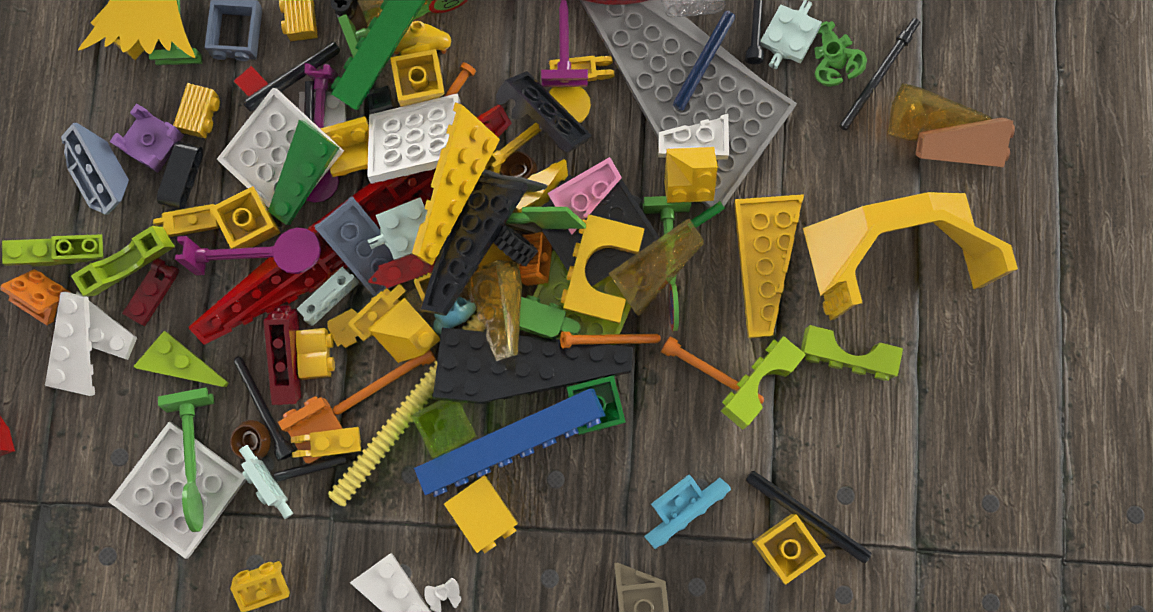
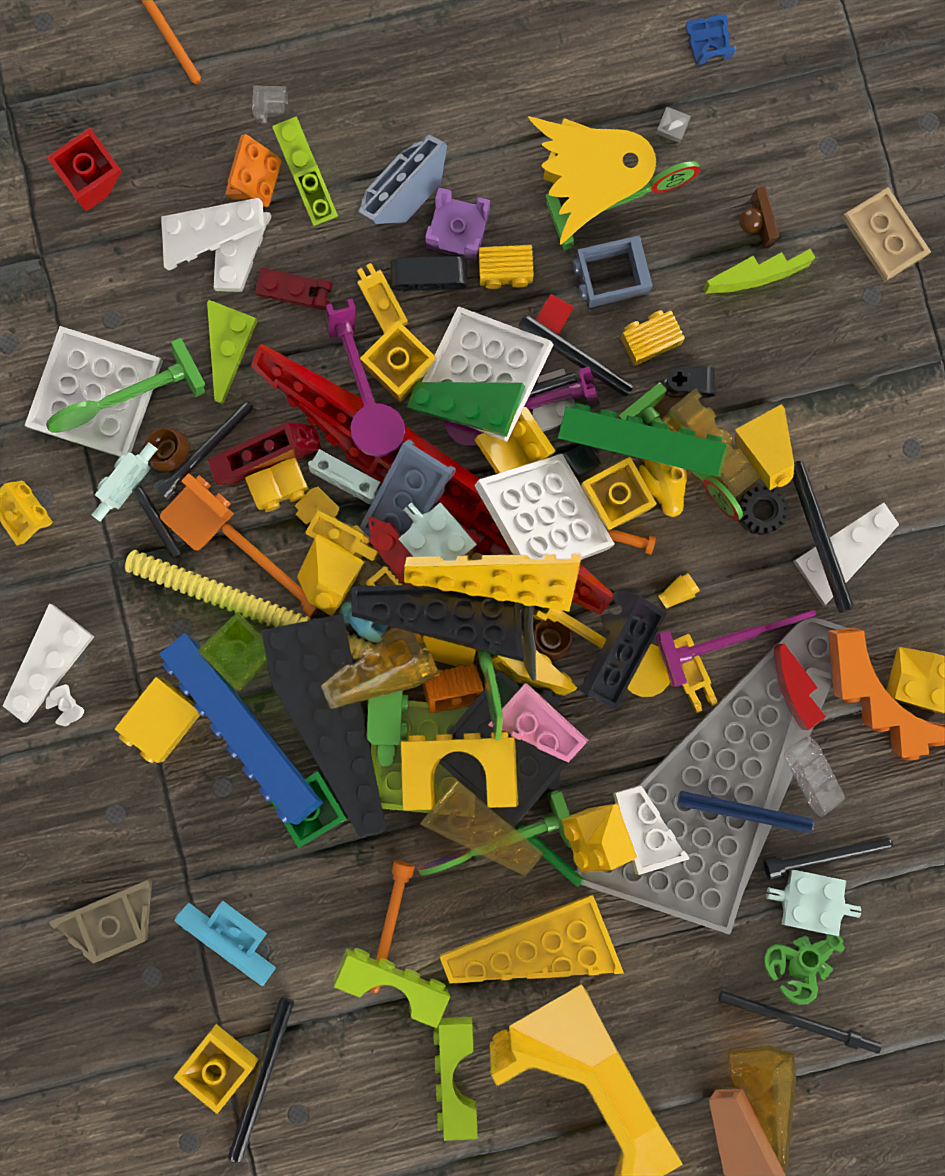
camera: 75 degrees right, 5 degrees up
(109, 271) = (313, 249): lime arch -> none
(329, 443) = (186, 533): yellow hinge -> none
(512, 56) = (679, 591): none -> yellow cone
(515, 246) = (454, 667): black tyre -> none
(567, 339) = (369, 757): orange bar -> none

